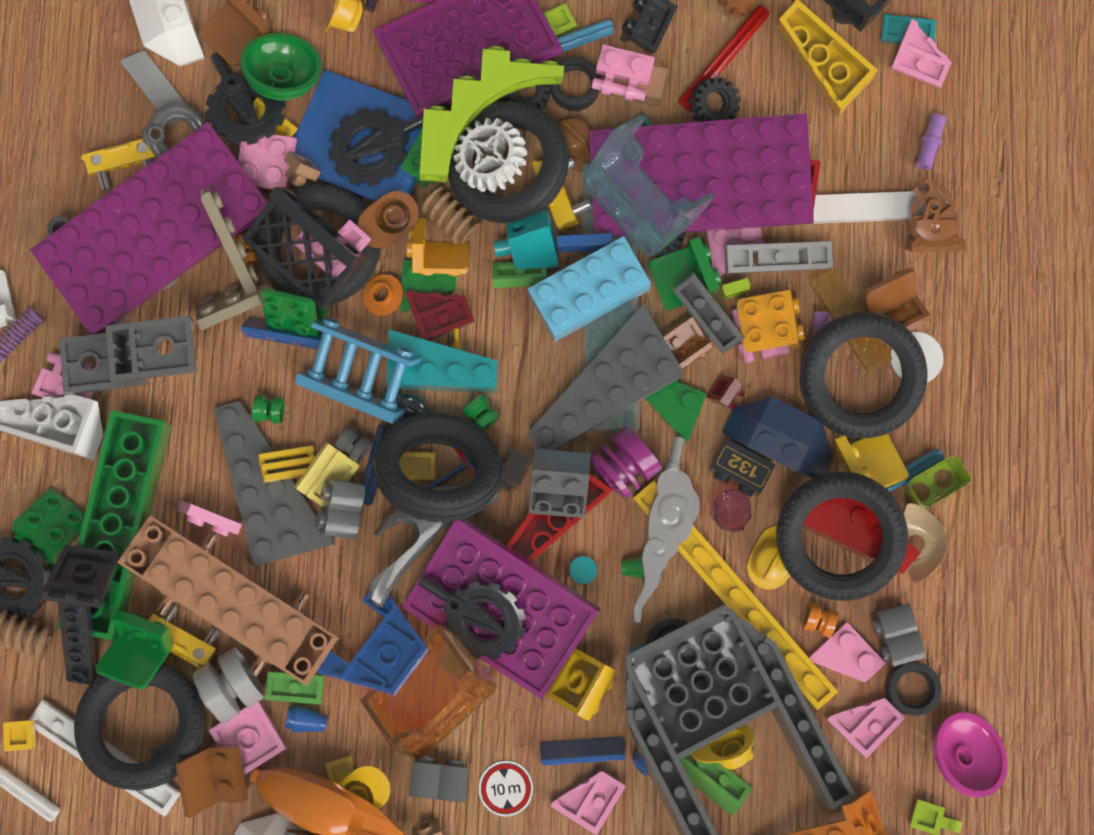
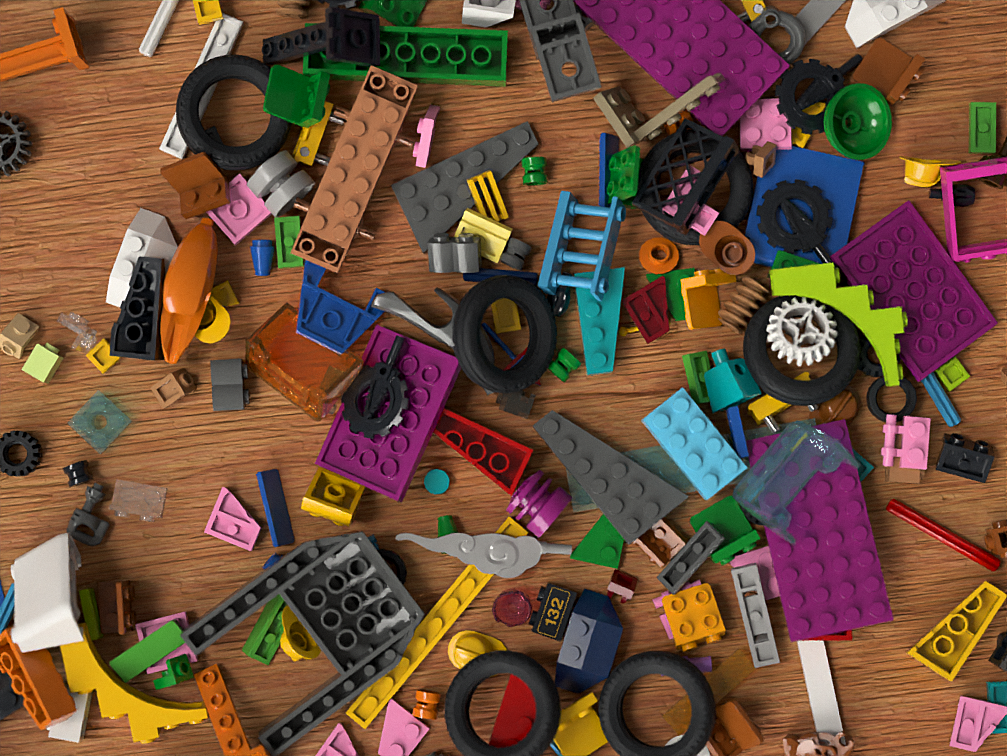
camera: 85 degrees right, 5 degrees up
(505, 788) = (232, 445): sticker -> none
(559, 483) = (508, 446): dark grey slope -> none
(718, 86) = (895, 547): black tyre -> none
(734, 289) = (719, 579): lime tile -> none
(931, 141) = (895, 743): medium lavender pin -> none

